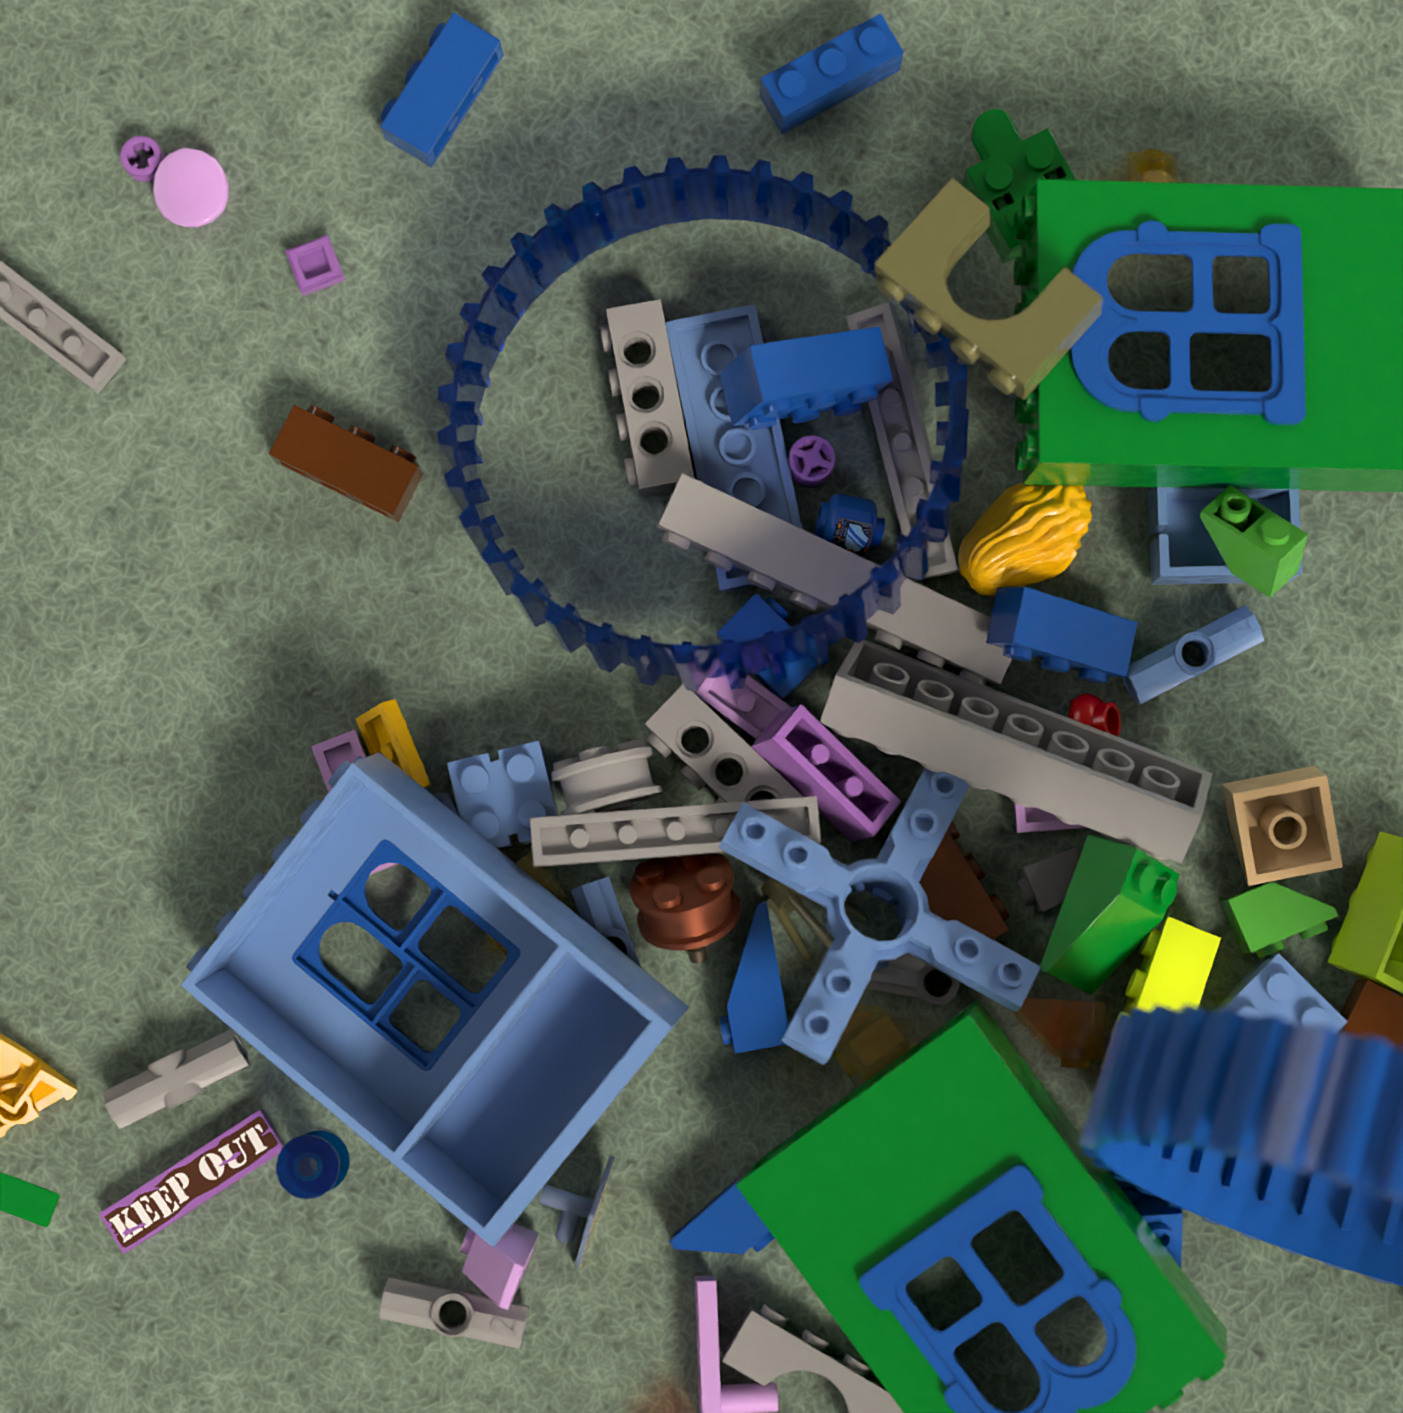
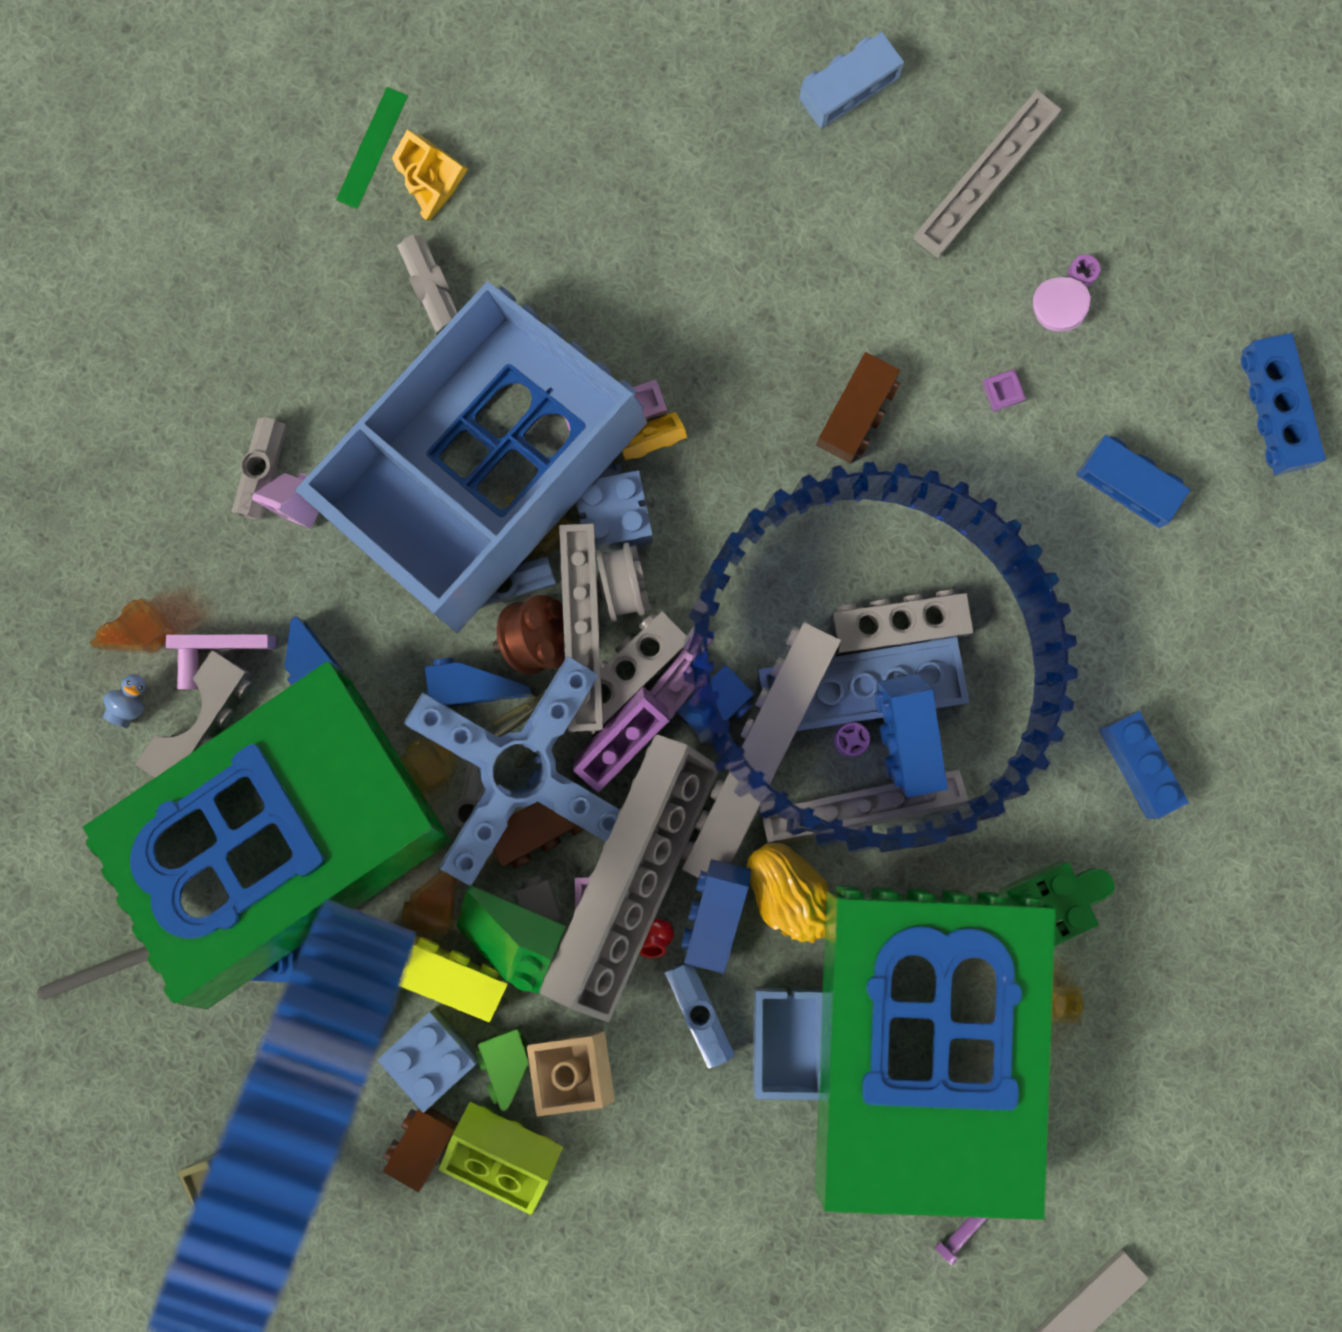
camera: 90 degrees right, 0 degrees up
(192, 1181) = (360, 296): tile -> none
(295, 1170) = (364, 373): clear blue piece -> none
(572, 1208) = (323, 551): sand blue shield -> none
(850, 523) = (803, 765): blue head -> none
(1012, 349) = (922, 882): olive arch -> none
(1254, 540) = (779, 1062): bright green slope -> none

